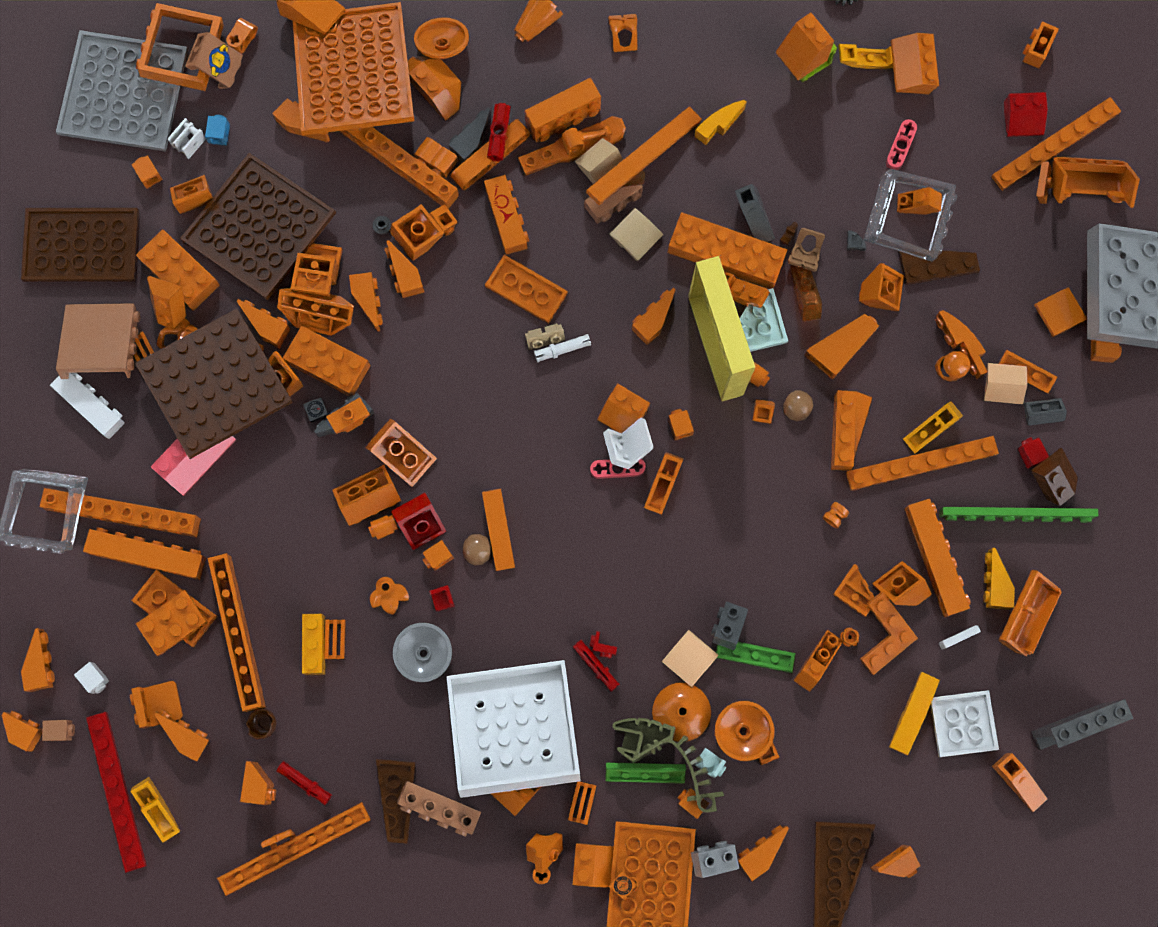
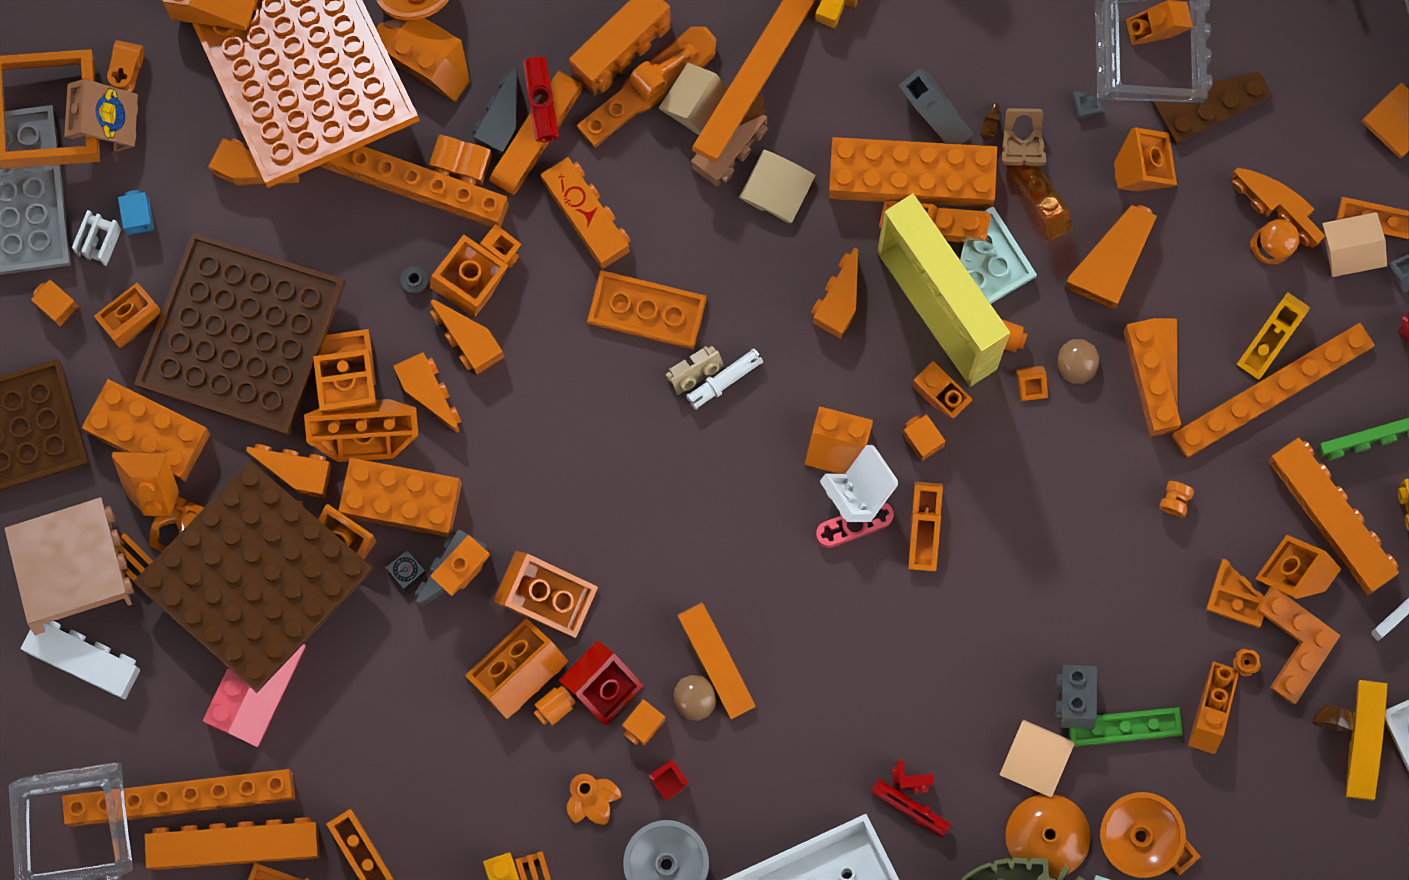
camera: 15 degrees left, 0 degrees up
(701, 397) = (941, 391): none -> orange slope
(897, 692) = (1334, 719): none -> reddish brown hat

